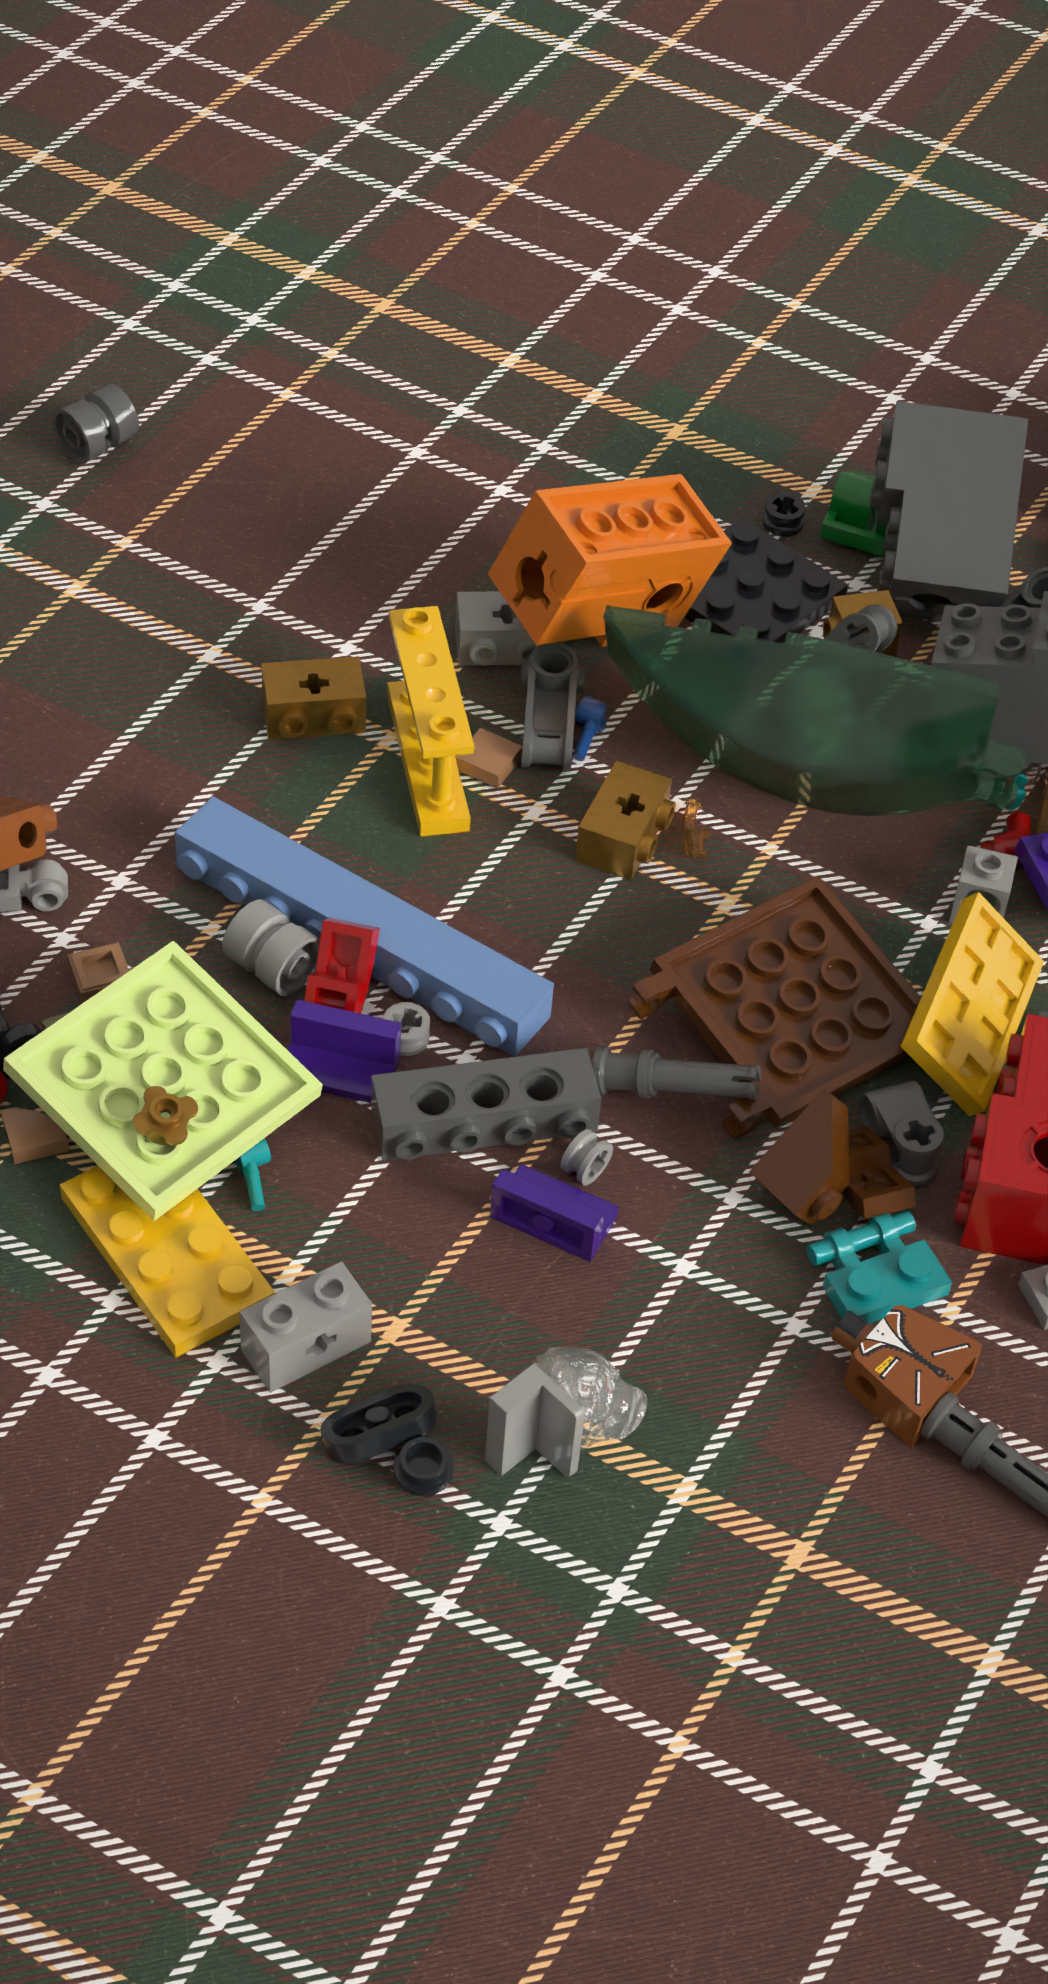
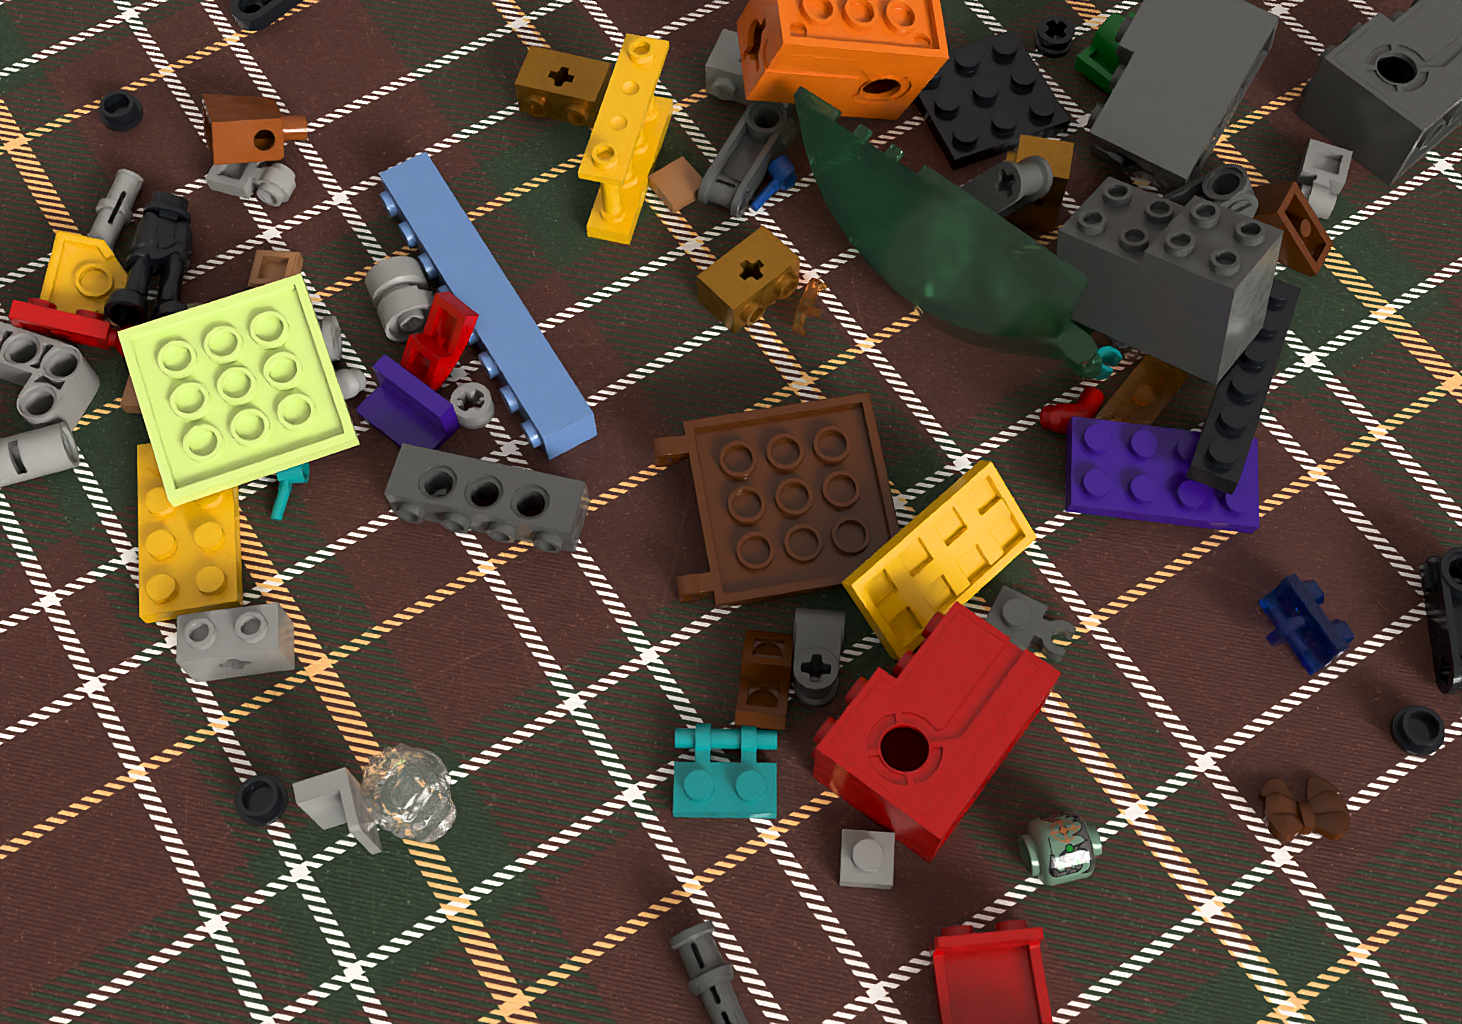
camera: 30 degrees right, 15 degrees up
(164, 1130) = (208, 439): pearl gold plate -> none
(378, 1424) = (244, 749): black plate -> none
(552, 1211) = (495, 611): dark purple panel -> none
(586, 1157) = (542, 576): light grey bush -> none
(649, 1074) = (631, 522): dark grey pin -> none
(810, 1160) = (710, 657): reddish brown slope -> none
(904, 1366) = (688, 877): dark orange torso -> none
(986, 873) = (1018, 450): light grey brick -> none

